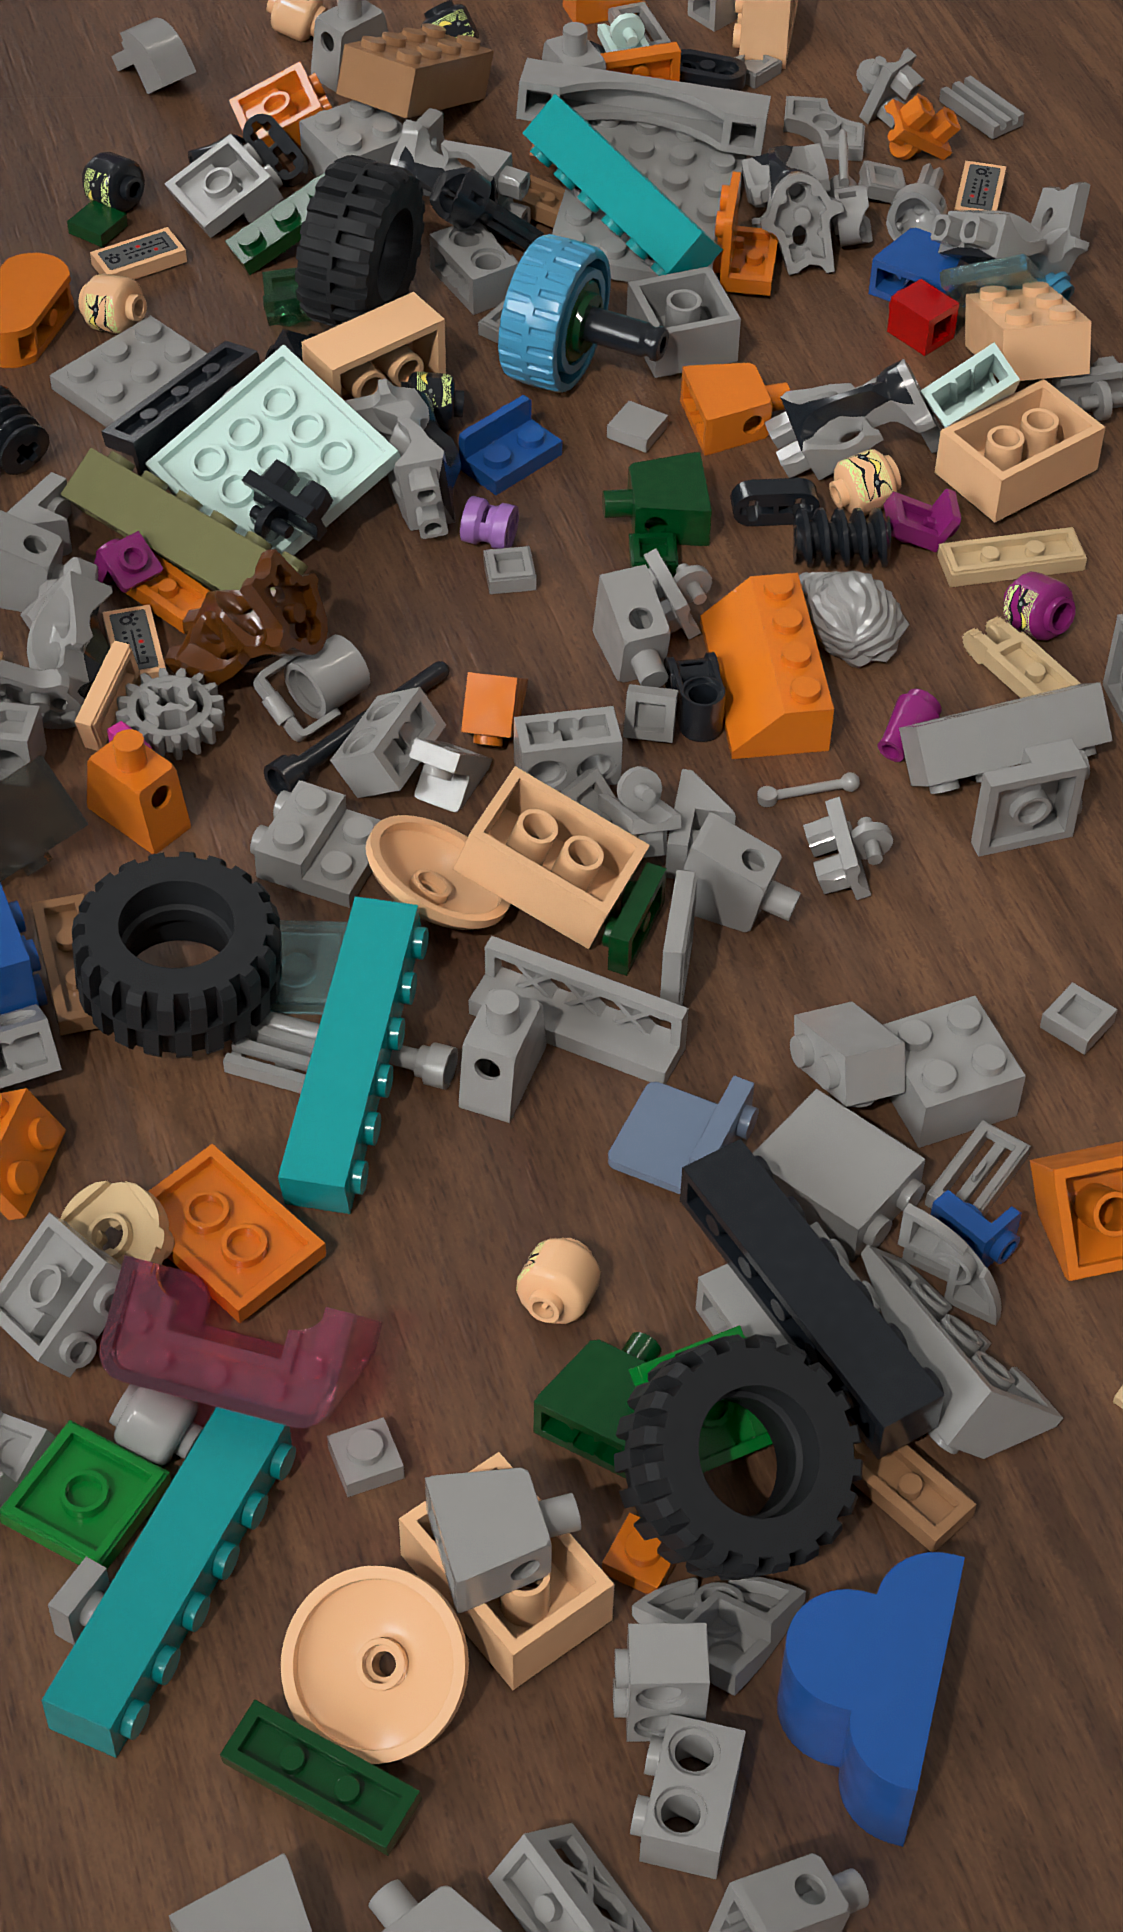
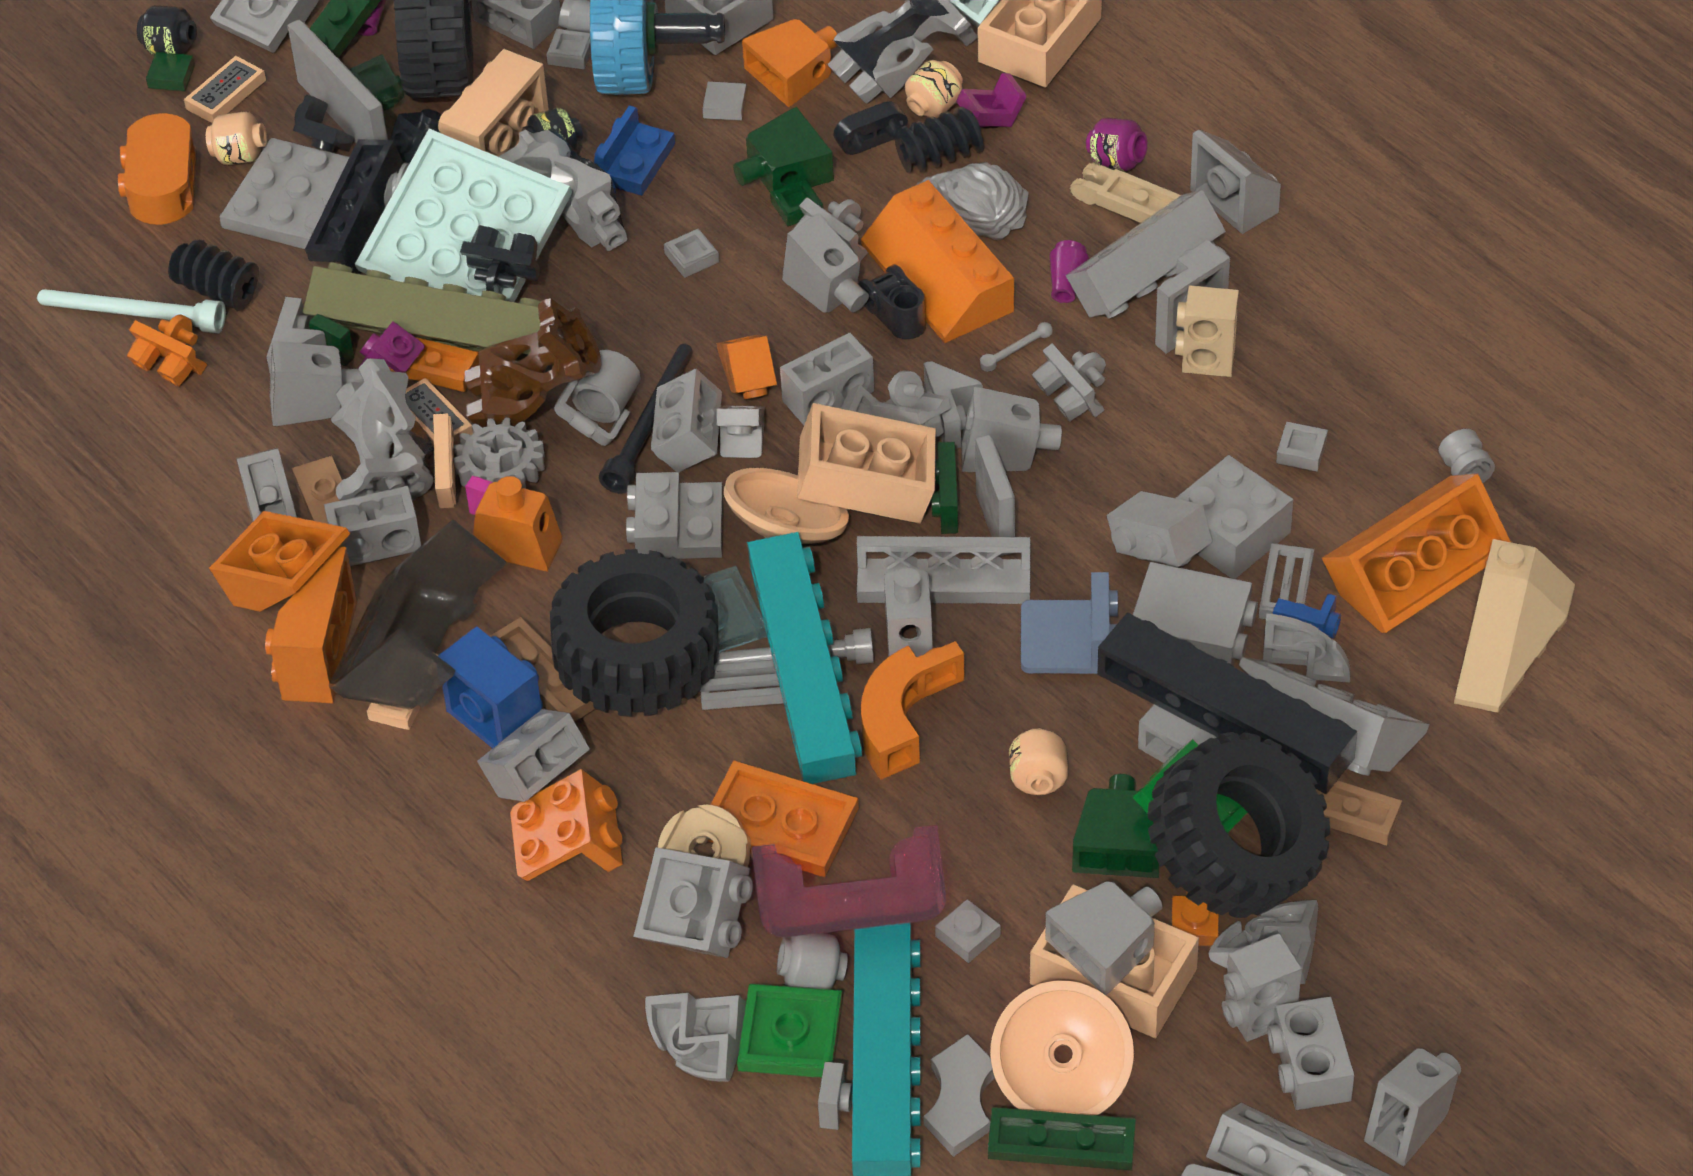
camera: 20 degrees left, 0 degrees up
(81, 530) = (335, 335): none -> dark green tile
(195, 311) = (309, 124): none -> black bracket
(223, 1684) = (958, 1115): none -> light grey tile
(234, 278) = (331, 81): none -> light grey tile
(432, 1137) = (891, 691): none -> orange arch
(489, 523) = (667, 220): medium lavender wheel -> none
(650, 713) = (872, 327): light grey plate -> none
(866, 1685) = (1398, 940): blue brick -> none
(1011, 556) = (1072, 111): tan tile -> none
(1029, 844) = (1208, 331): none -> tan brick

